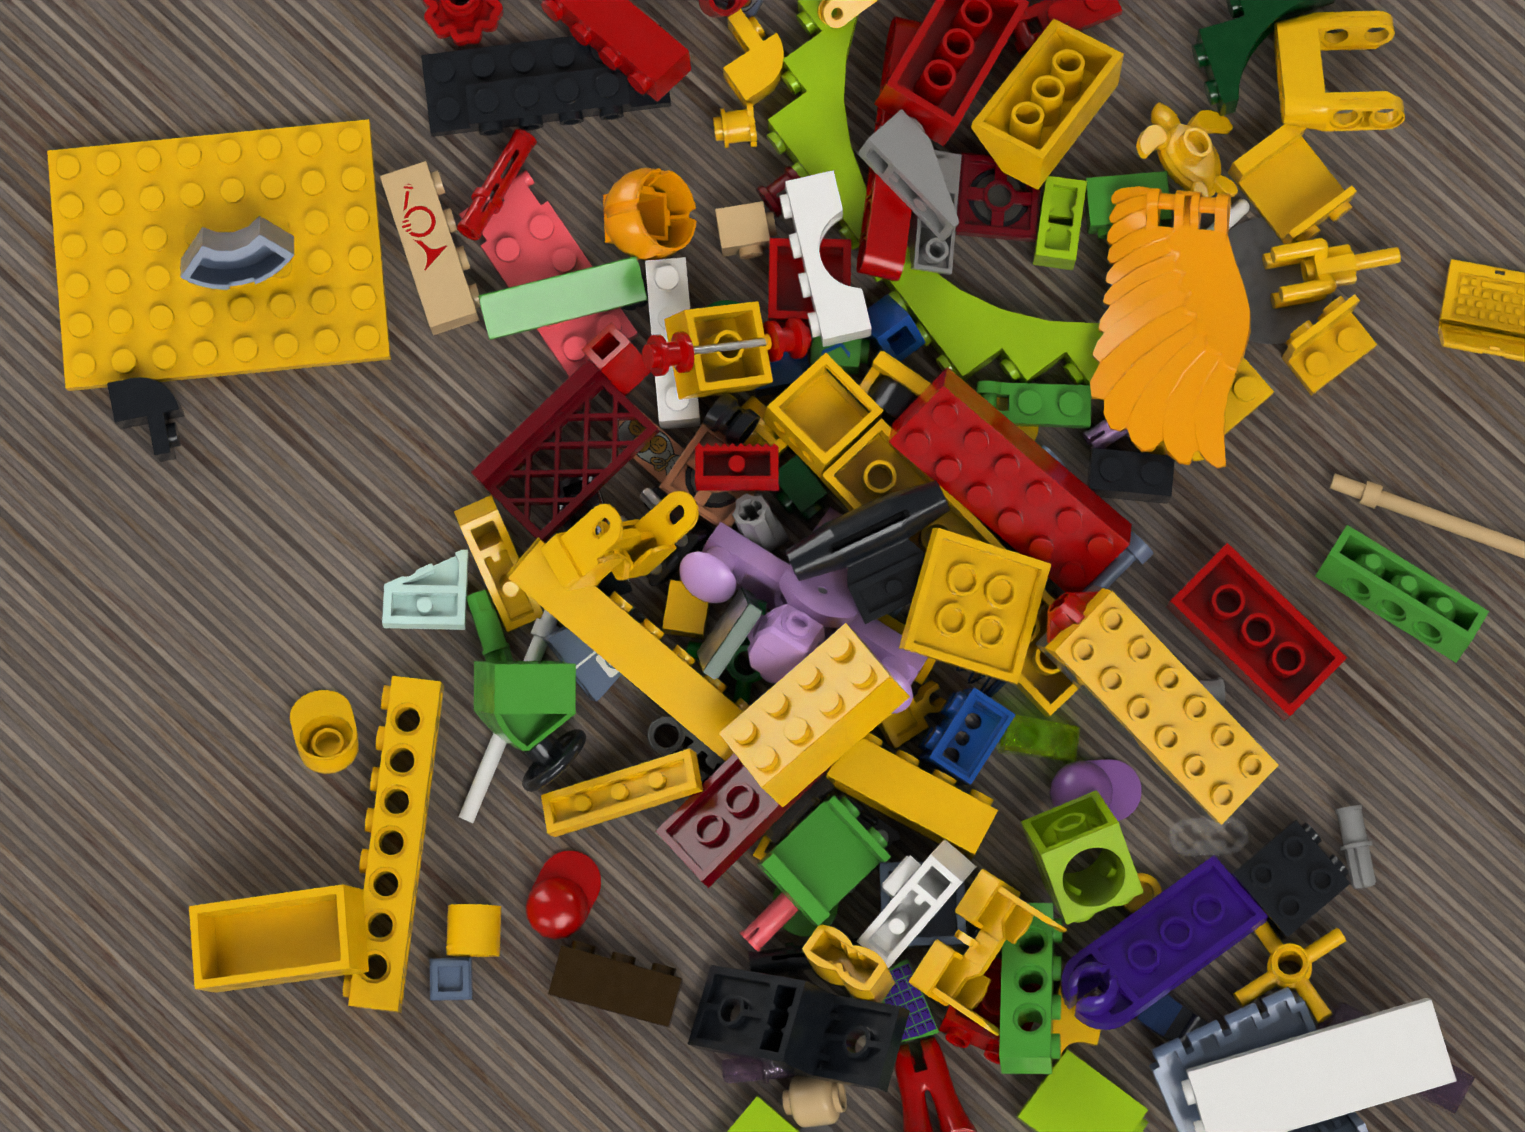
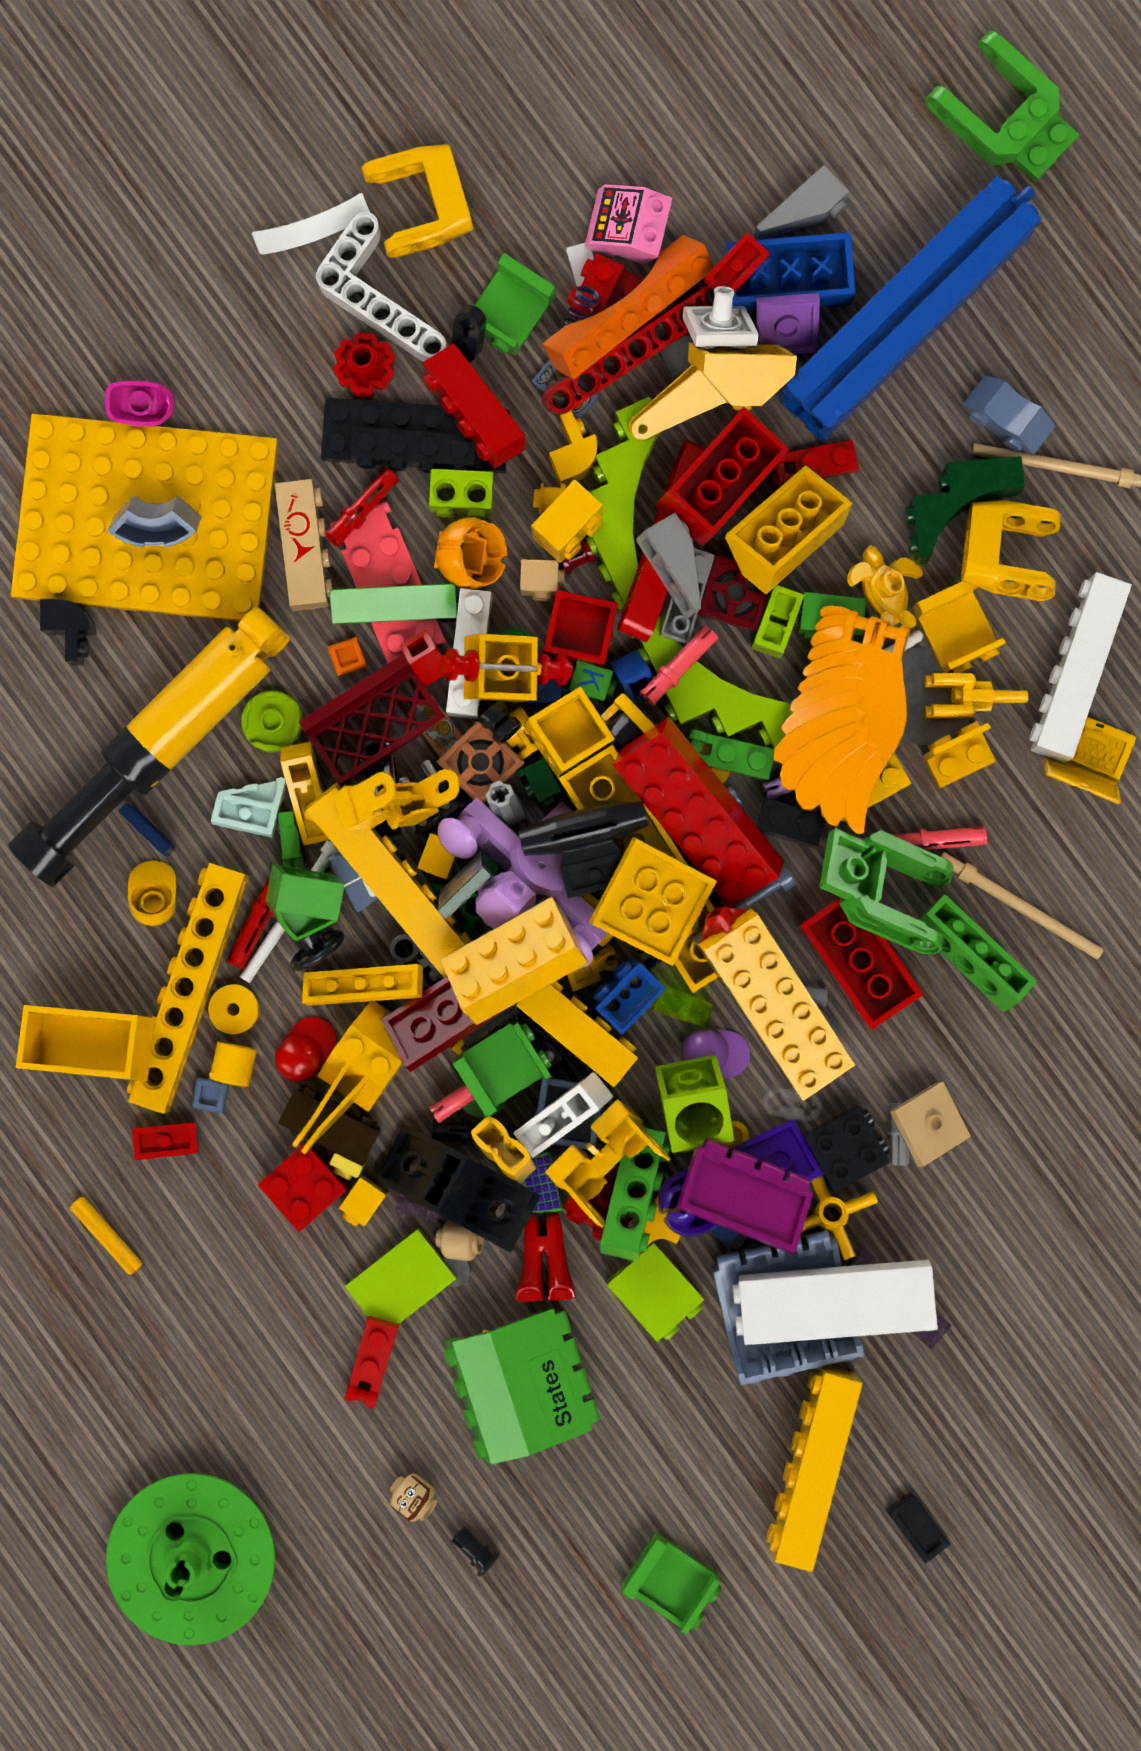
camera: 10 degrees right, 5 degrees up
(184, 109) = (139, 403): none -> dark pink piece
(294, 530) = (156, 740): none -> piece
(301, 651) = (147, 829): none -> dark blue tile
(405, 1049) = (165, 1140): none -> red plate
(434, 480) = (271, 721): none -> lime tile
(462, 753) = (251, 930): none -> red pin
(478, 864) = (248, 1009): none -> yellow piece
(515, 379) = (347, 656): none -> orange tile
(597, 1070) = (303, 1186): none -> red piece
(619, 130) = (462, 483): none -> lime brick
(638, 901) = (357, 1068): none -> yellow slope
(647, 1033) = (346, 1167): none -> light yellow plate
(678, 1075) = (362, 1201): none -> yellow brick
(737, 467) = (495, 760): red brick -> none
(767, 148) = (568, 522): none -> yellow brick
(838, 308) = (594, 575): white arch -> none
(900, 876) = (555, 1092): white tile -> none
(937, 315) = (669, 675): none -> coral pin
(1174, 963) = (744, 1197): none -> magenta hinge
(1229, 518) = (856, 874): none -> bright green plate
(1311, 463) = (946, 838): none -> coral pin
(1392, 824) = (930, 1124): none -> tan plate
(1458, 204) = (1080, 667): none -> white brick

